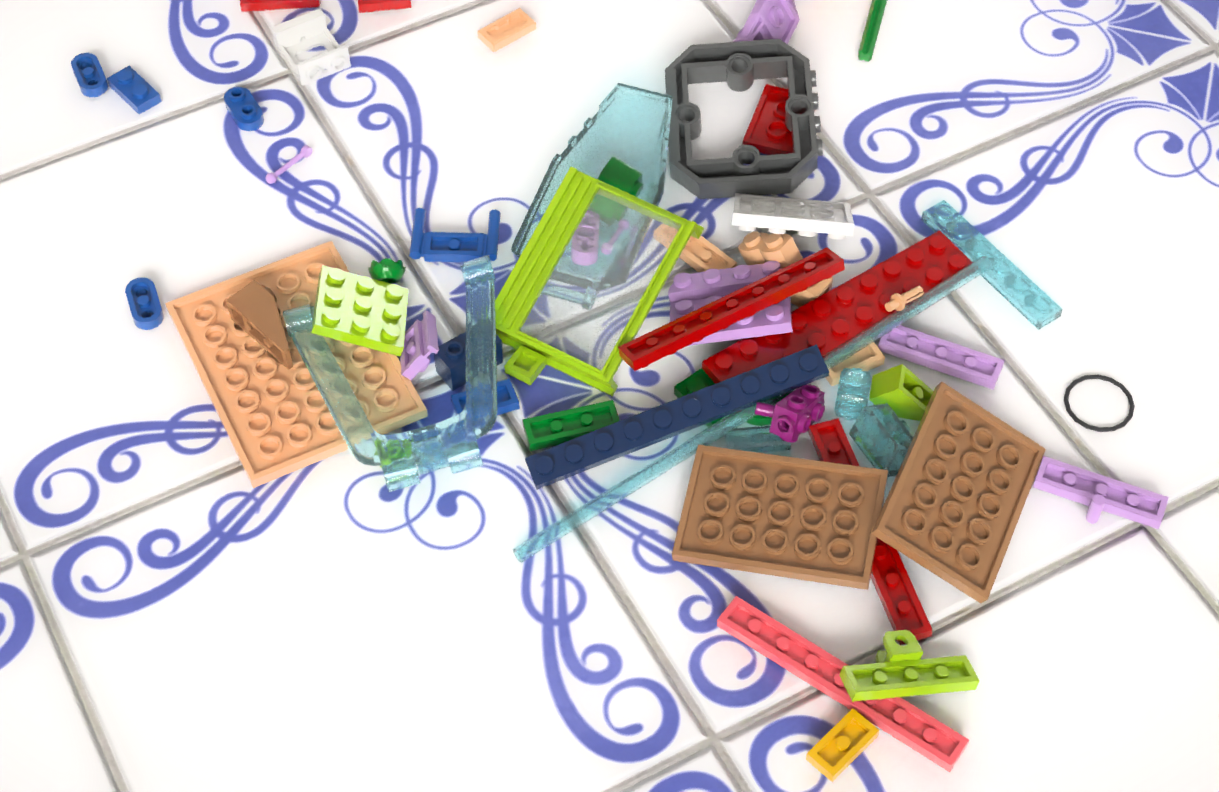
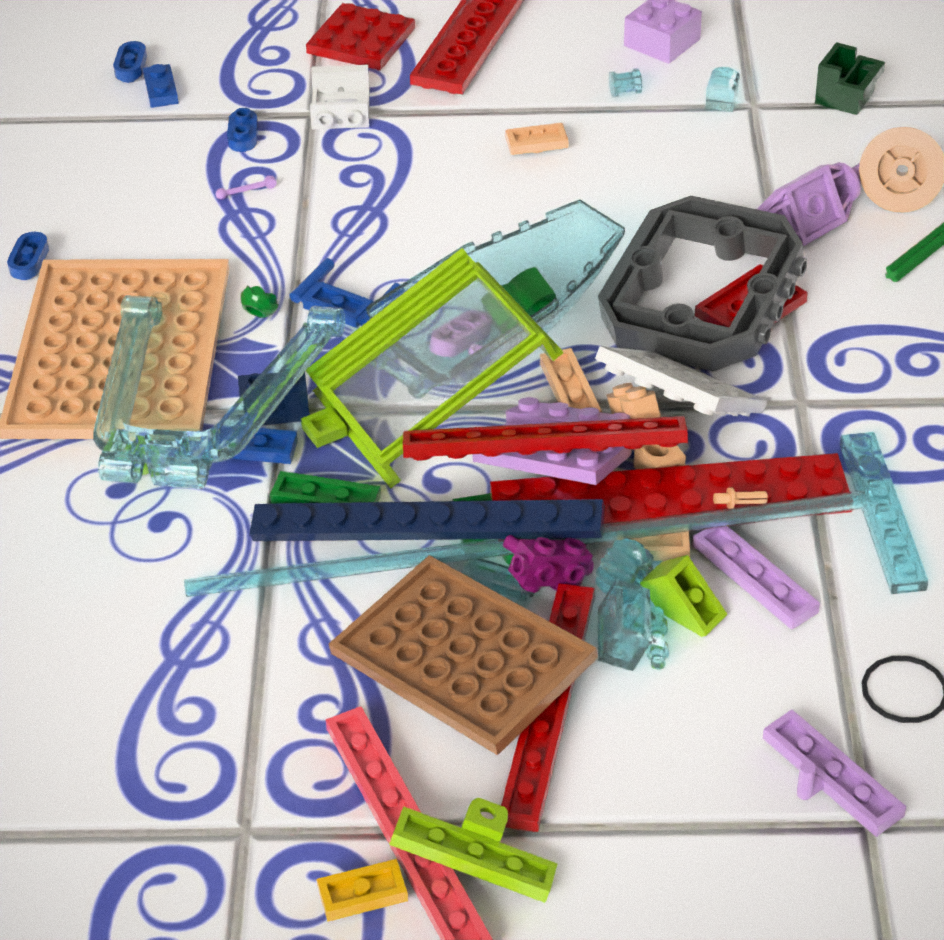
camera: 30 degrees right, 10 degrees down
(257, 314) = (106, 288): medium nougat slope -> none
(360, 310) = (201, 322): plate -> none
(418, 345) = (228, 375): lavender plate -> none
(959, 492) = (663, 702): medium nougat plate -> none

